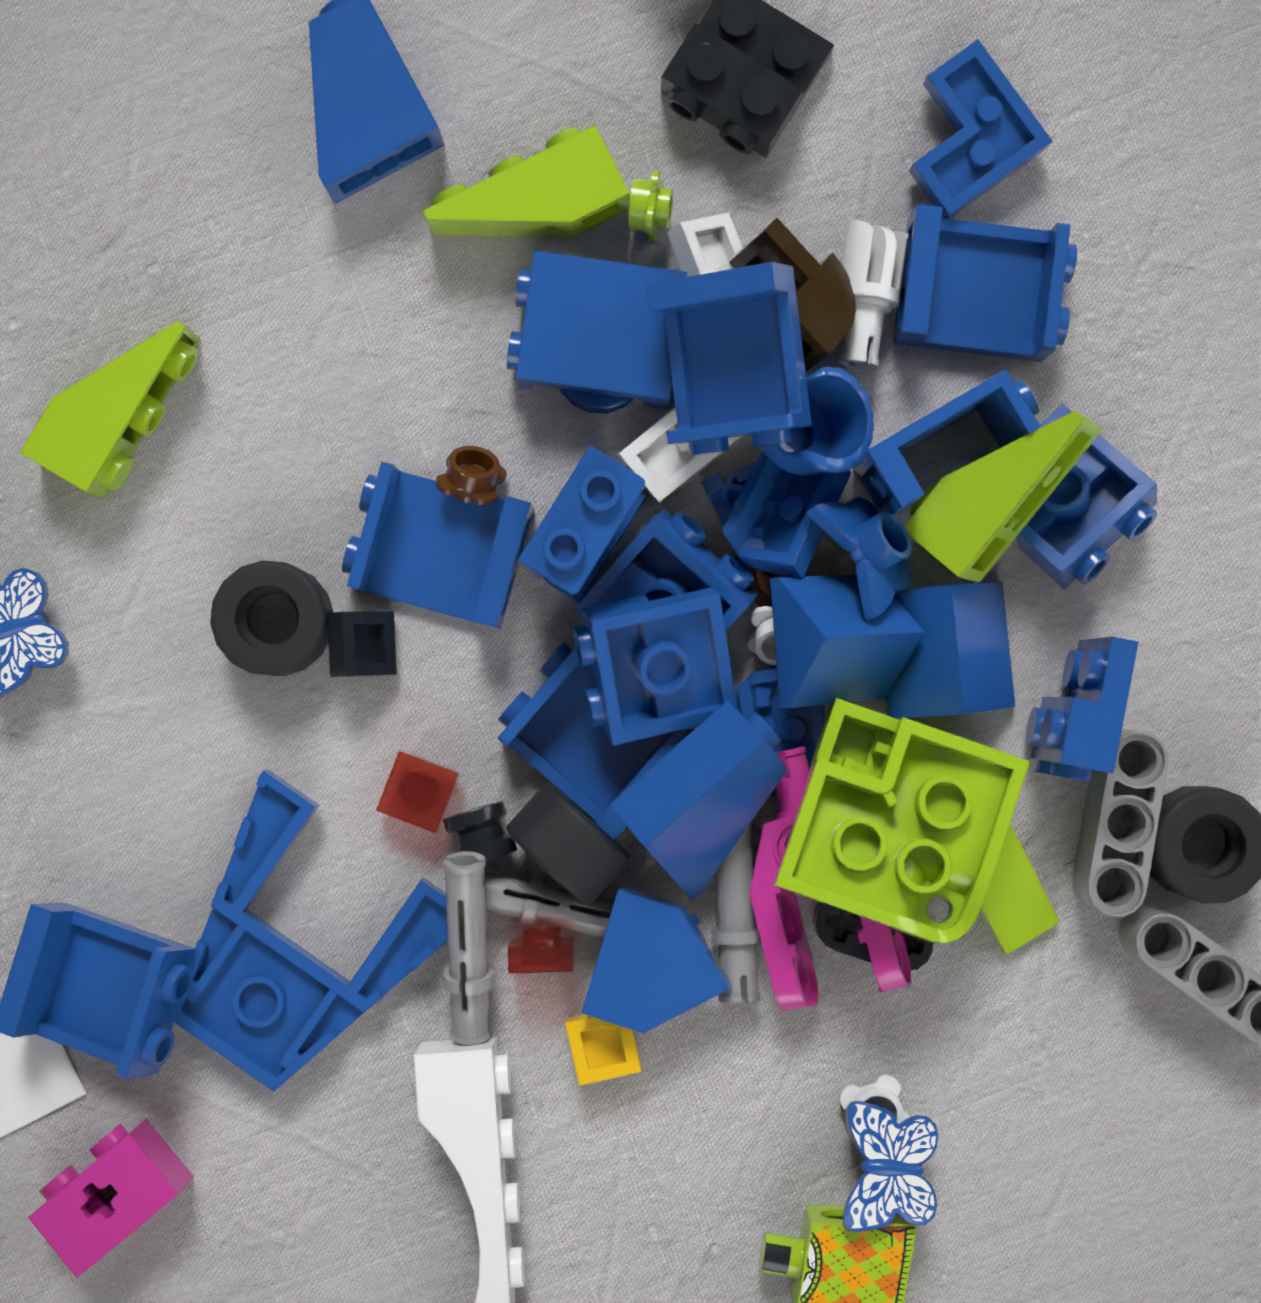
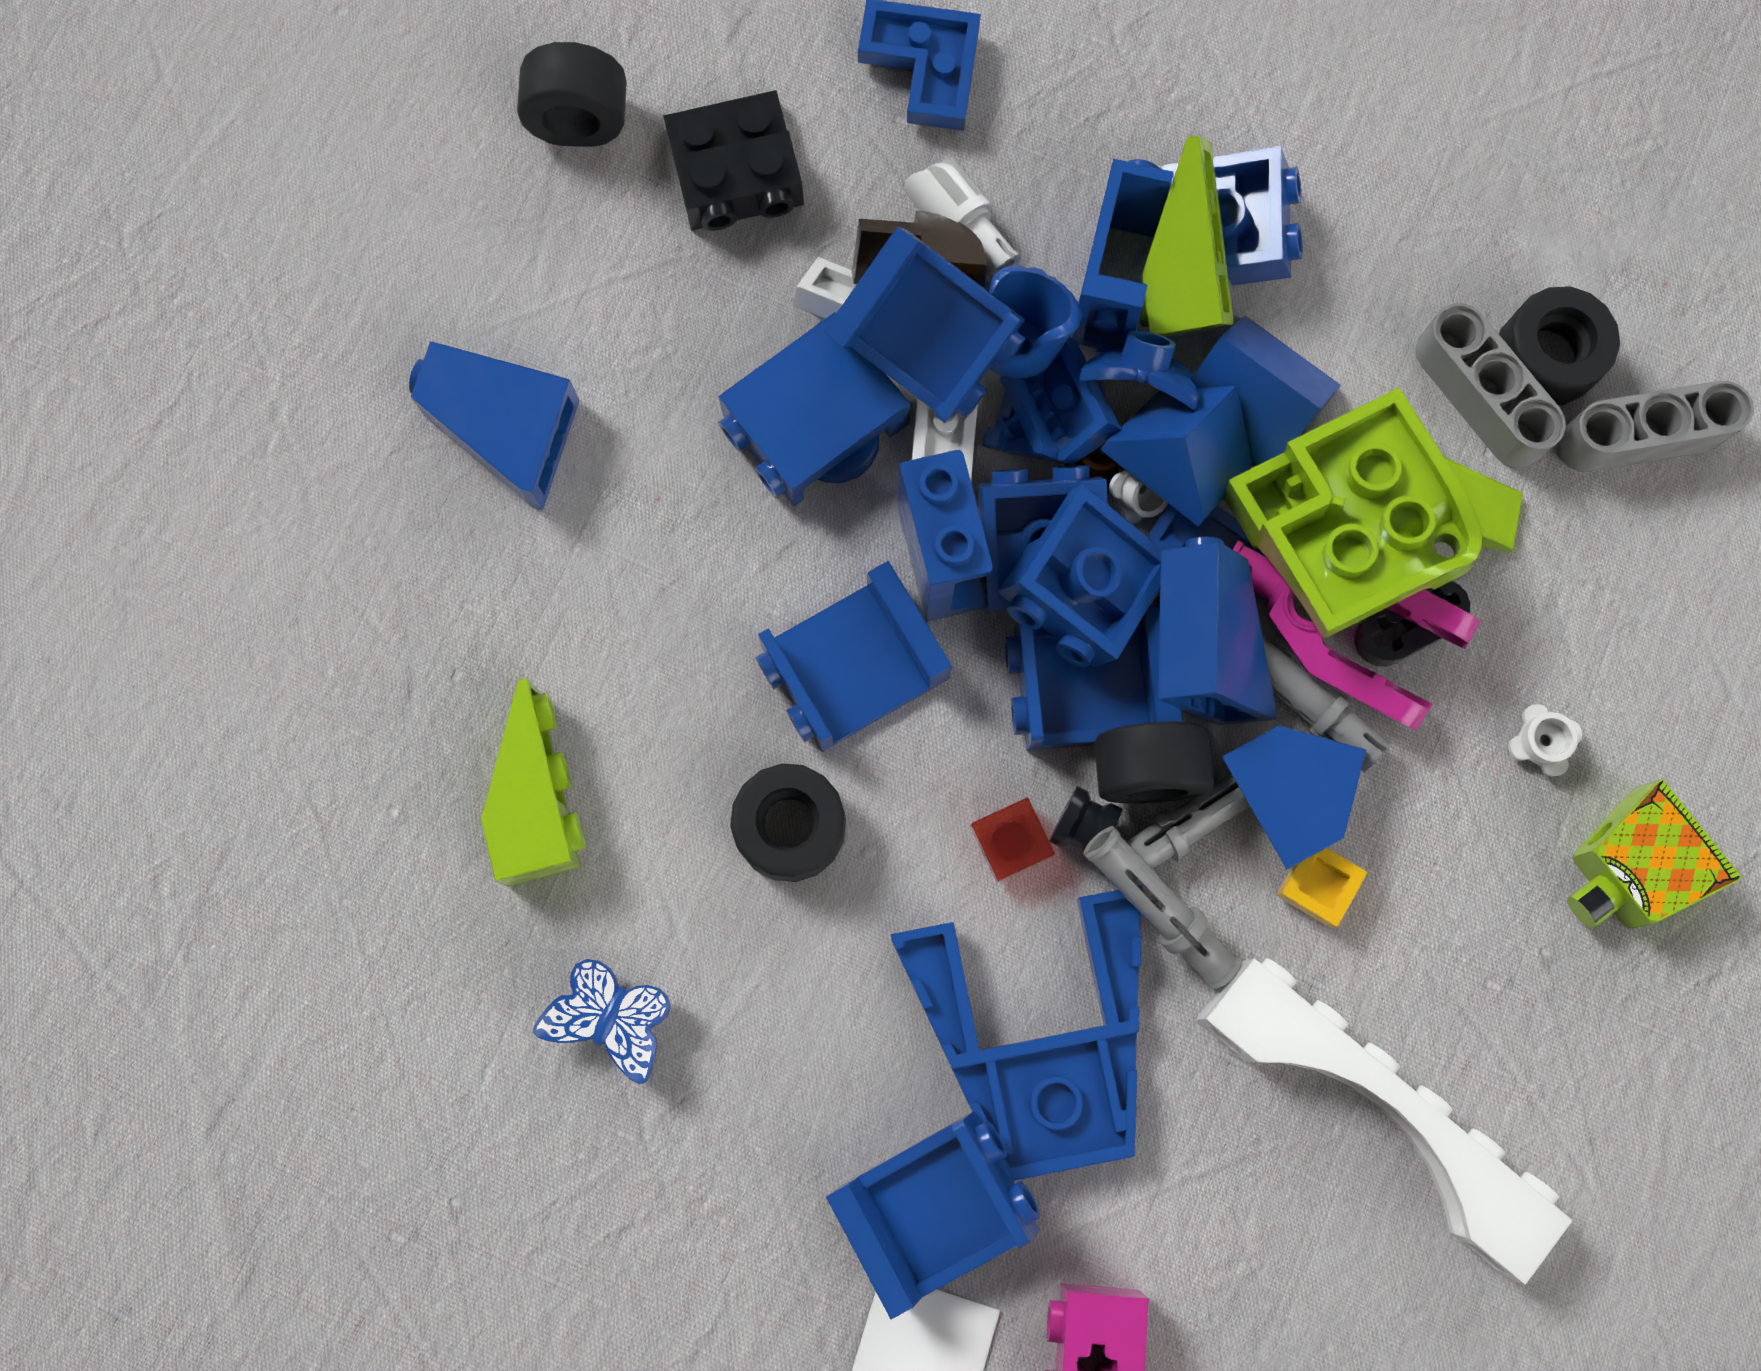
camera: 45 degrees left, 10 degrees down
(361, 643) = (868, 777): black plate -> none
(472, 475) = (825, 590): reddish brown plate -> none
(541, 951) = (1212, 861): clear red plate -> none
(547, 195) = (687, 360): lime slope -> none
(650, 206) = (763, 300): lime plate -> none
(890, 1168) = (1600, 760): animal -> none
(984, 287) = (1035, 143): blue panel -> none
(1085, 728) = (1397, 325): blue plate -> none

